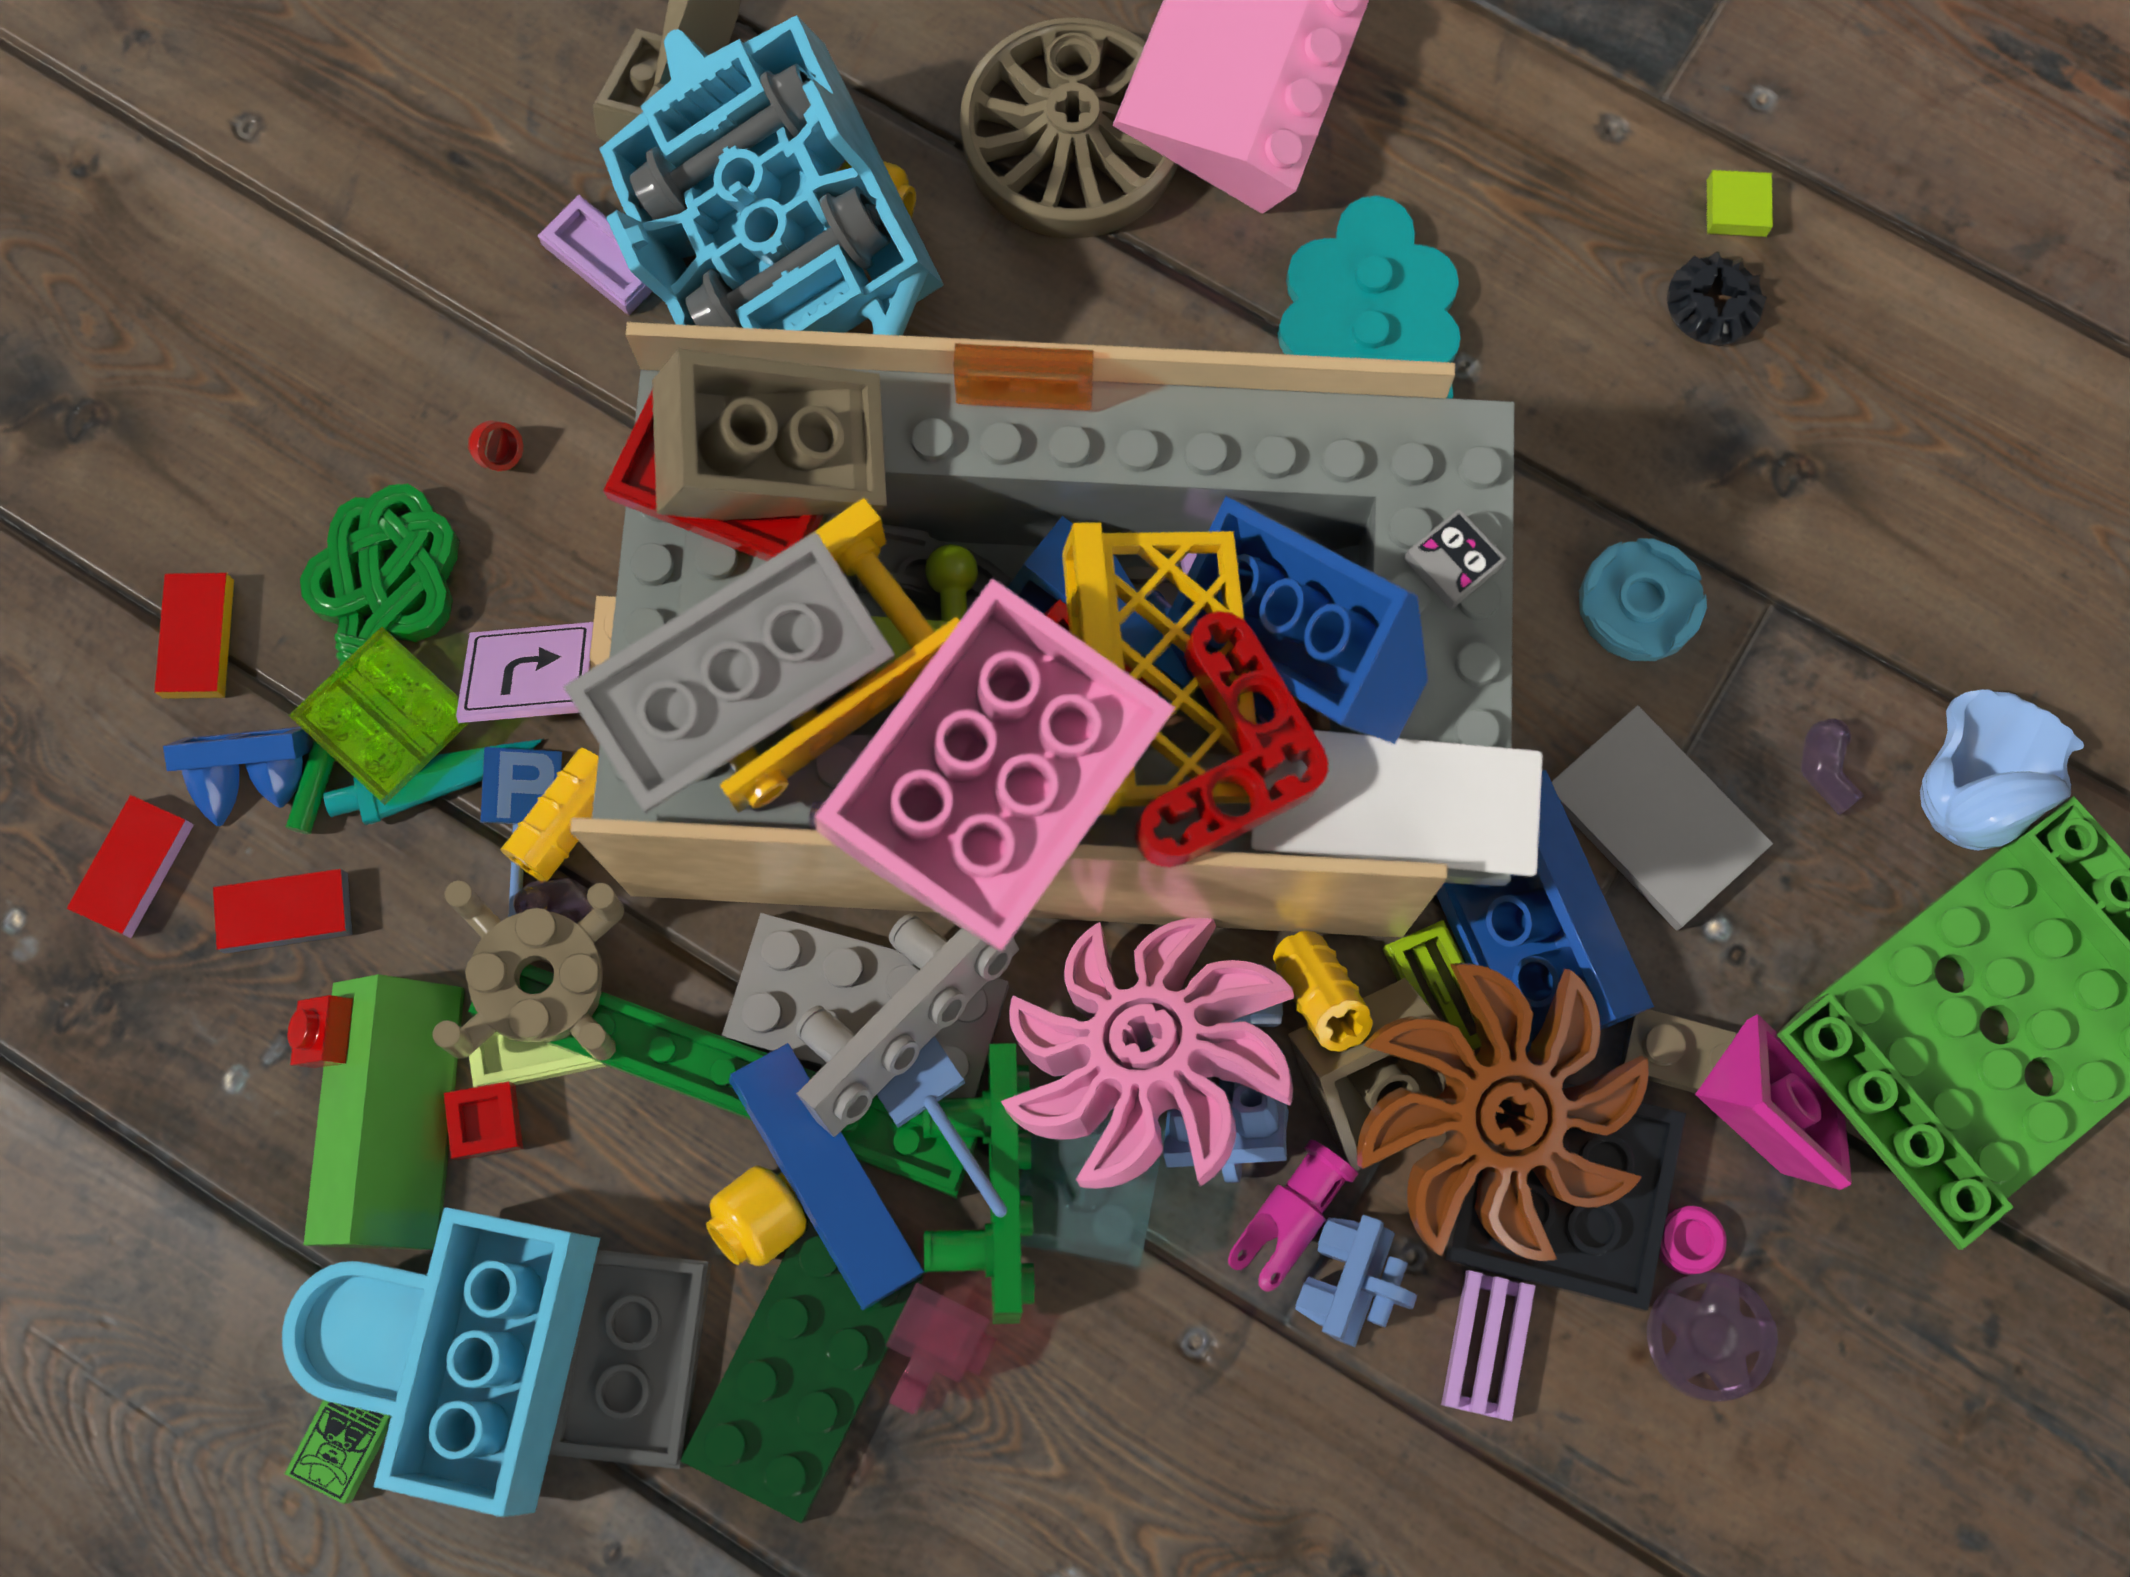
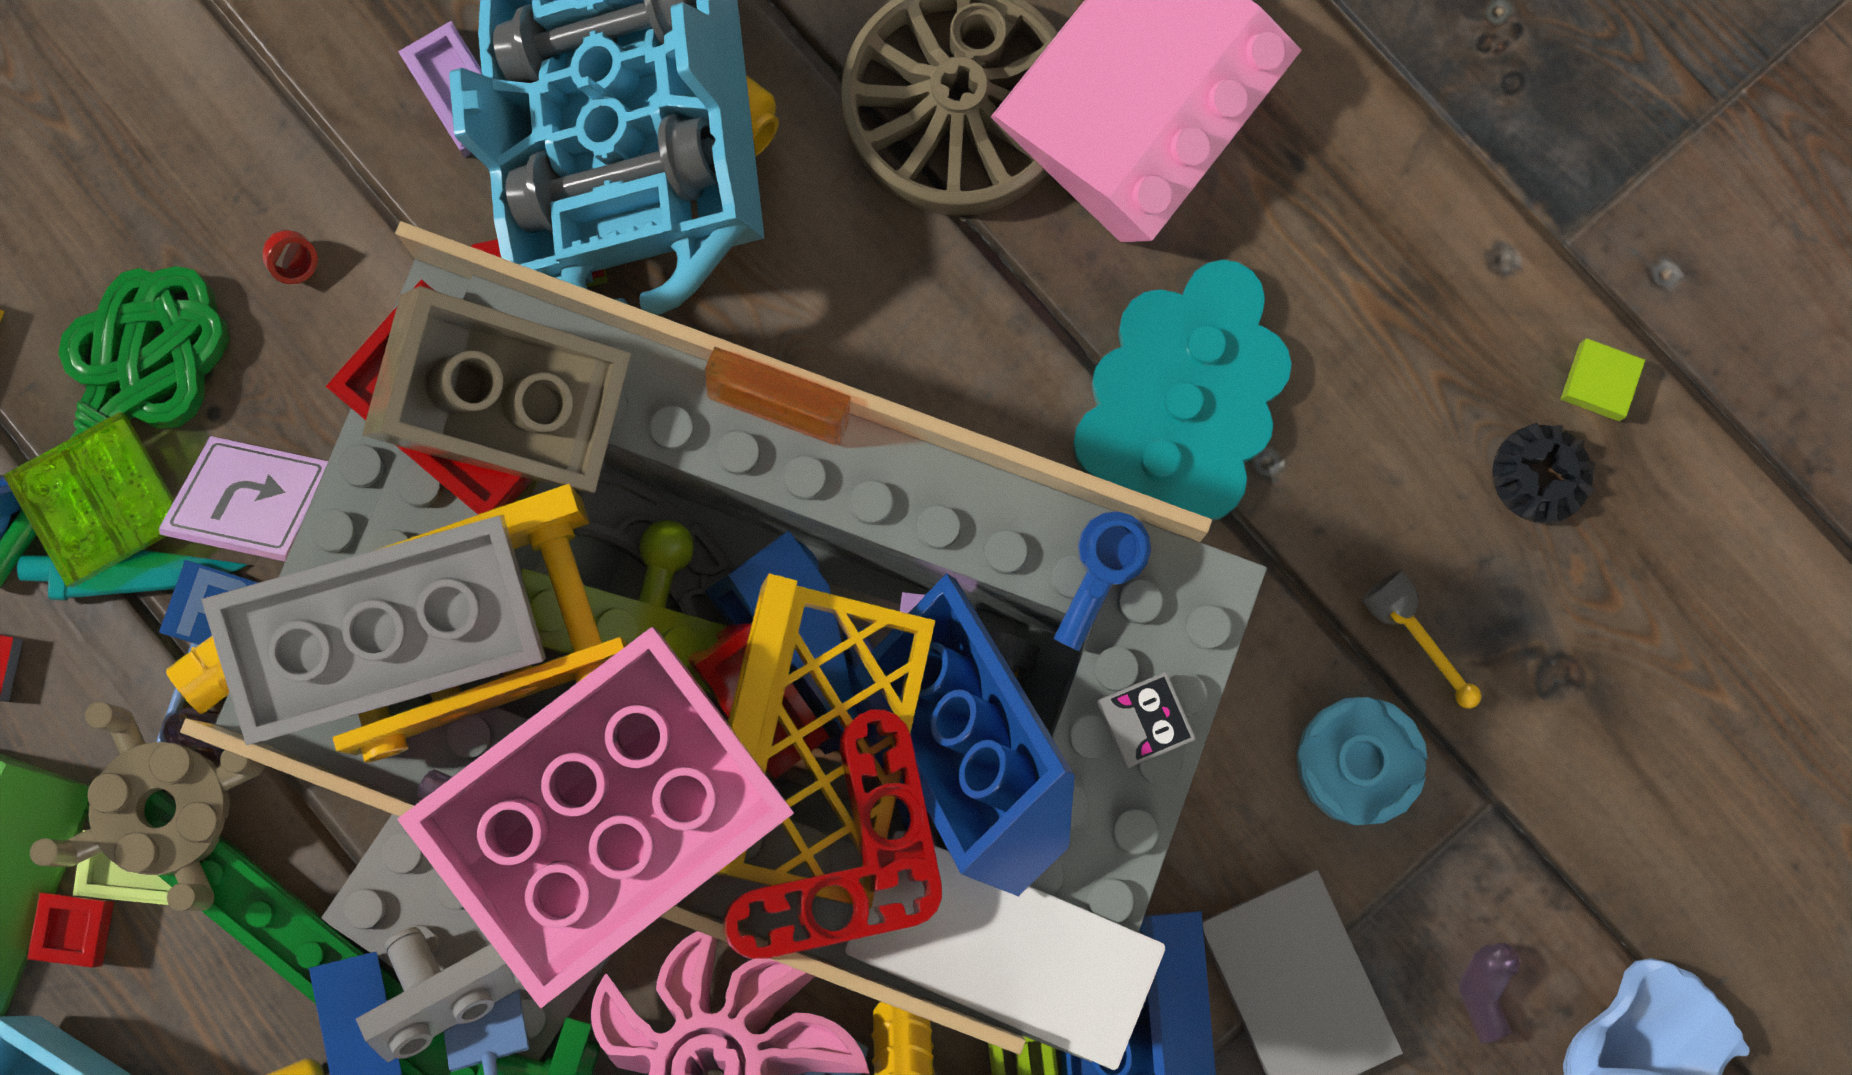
camera: 15 degrees right, 5 degrees up
(1373, 422) = (1113, 551): none -> blue plate
(1626, 448) = (1395, 603): none -> hinge

